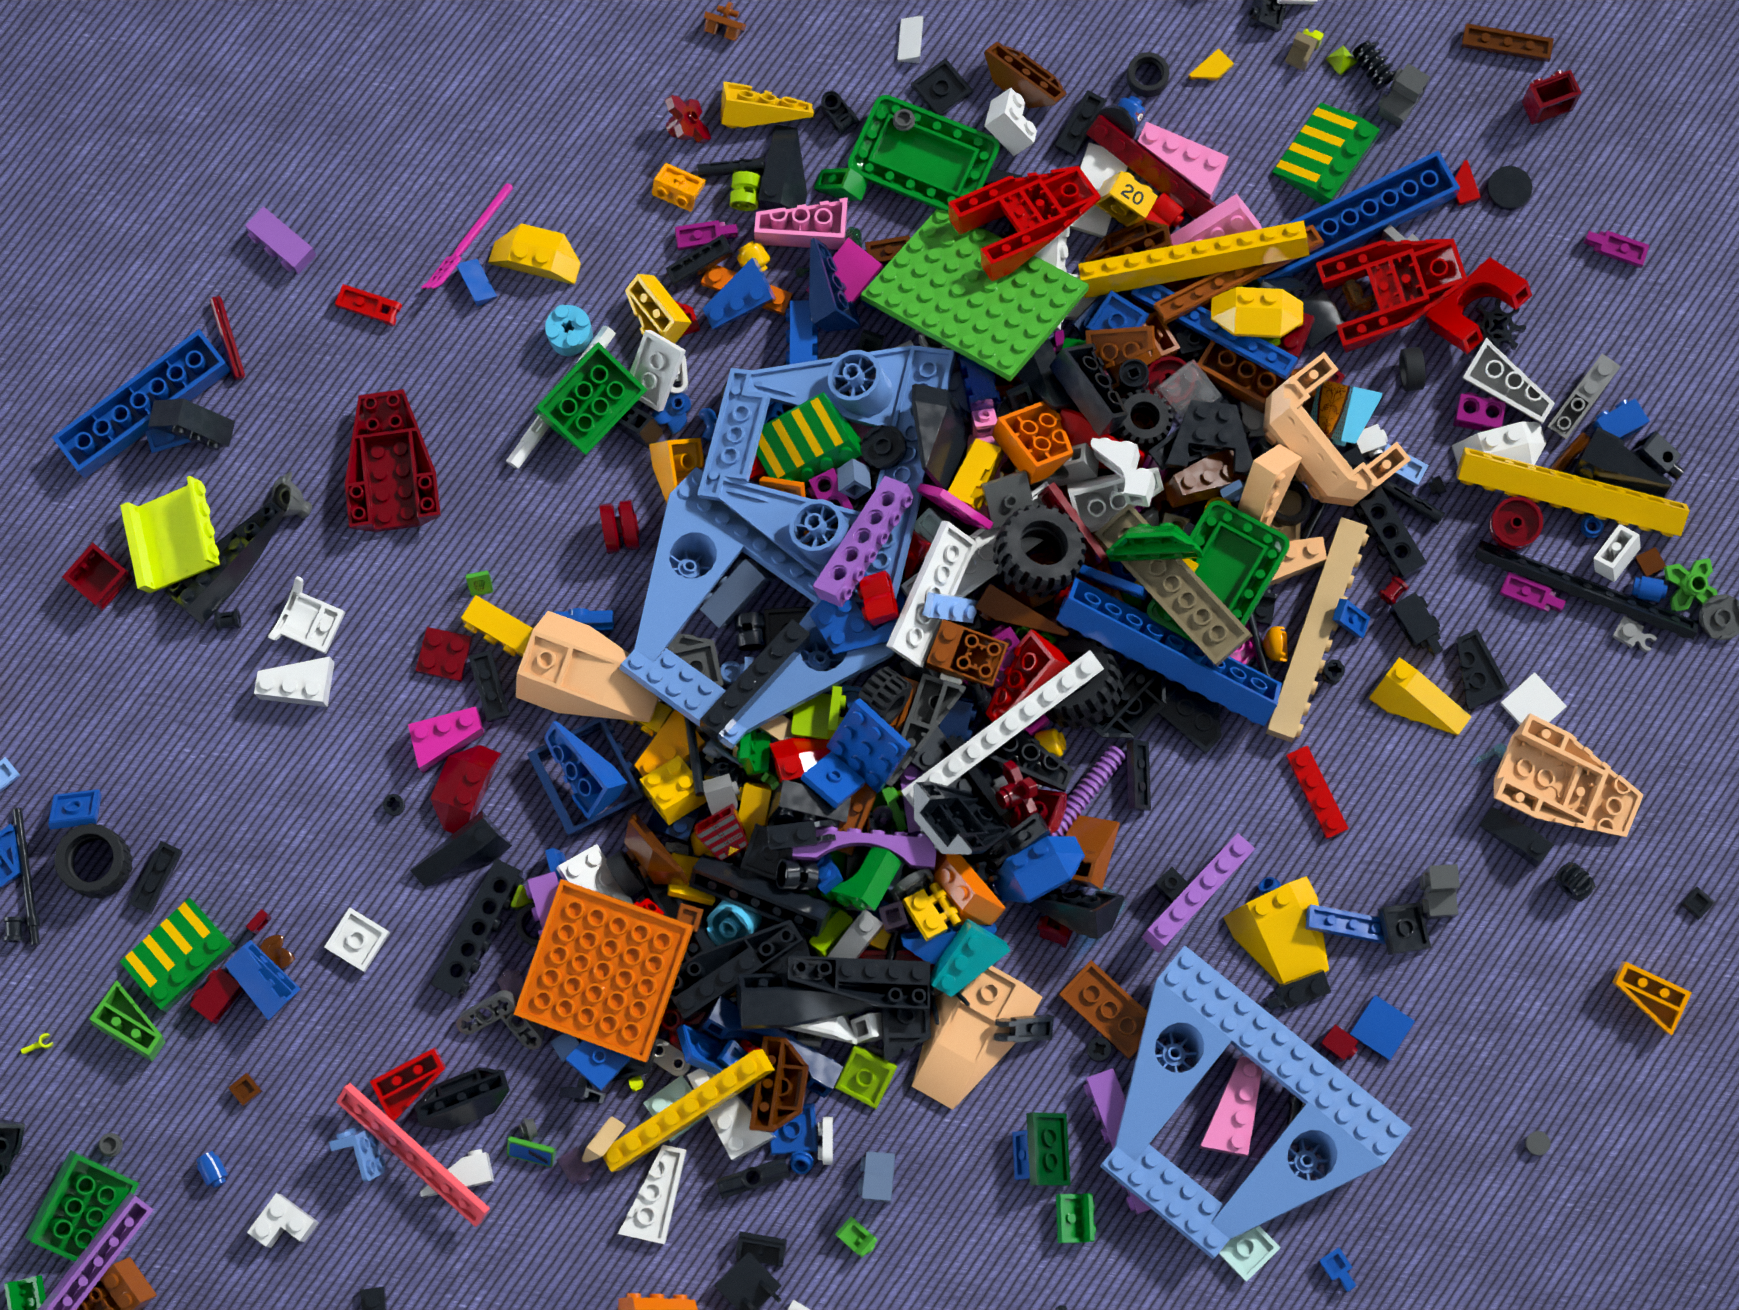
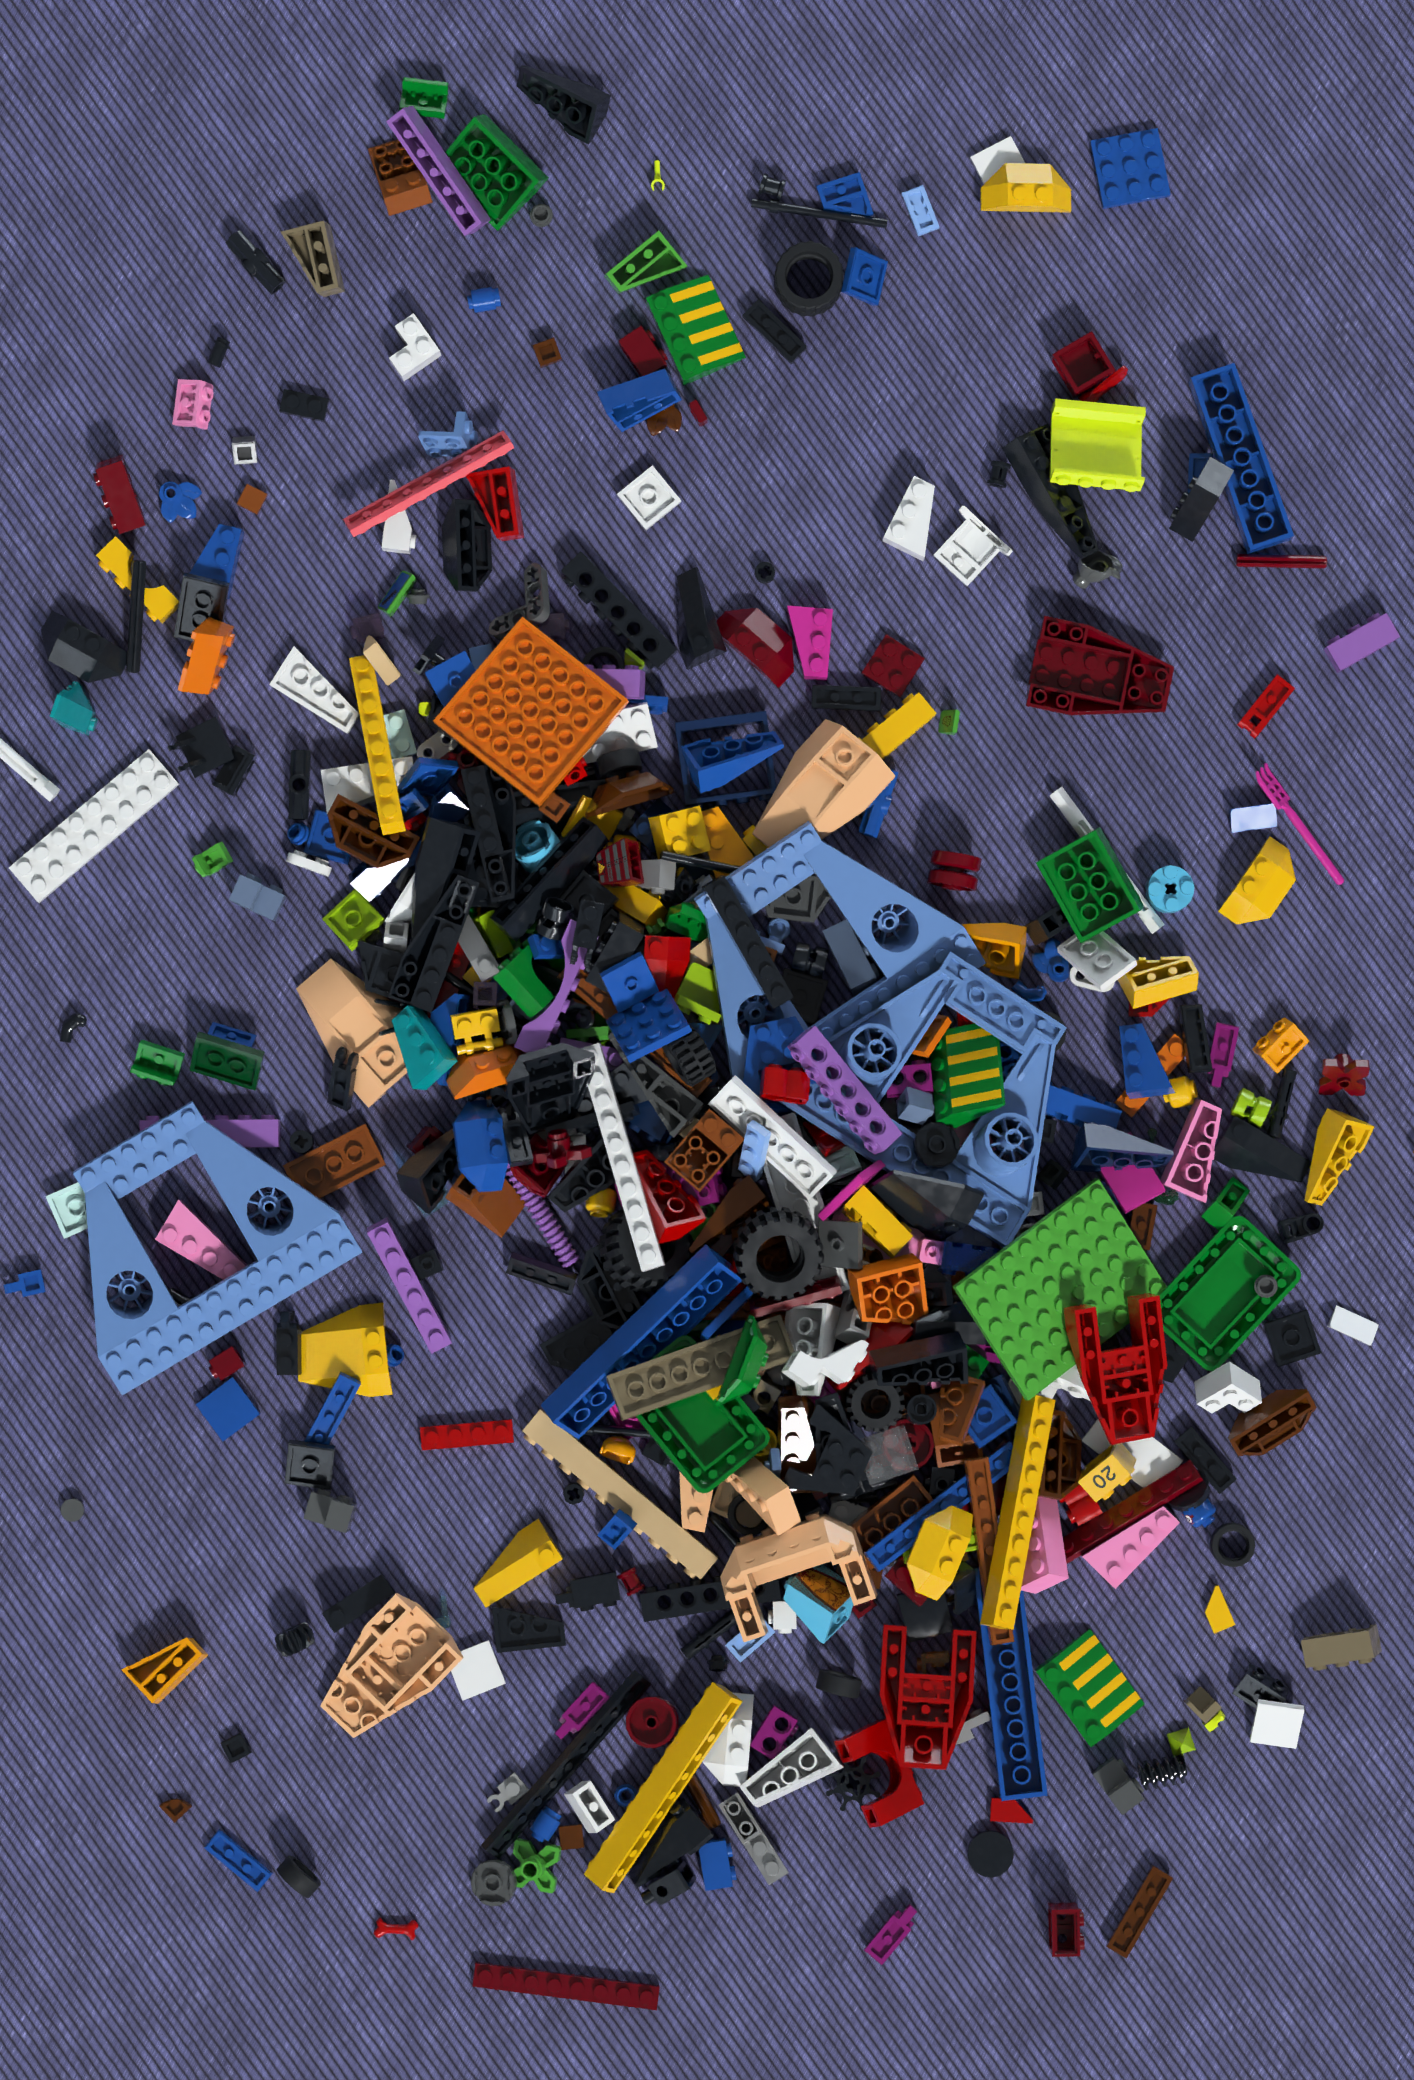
camera: 105 degrees right, 10 degrees up
(123, 558) = (1105, 386): none -> red piece

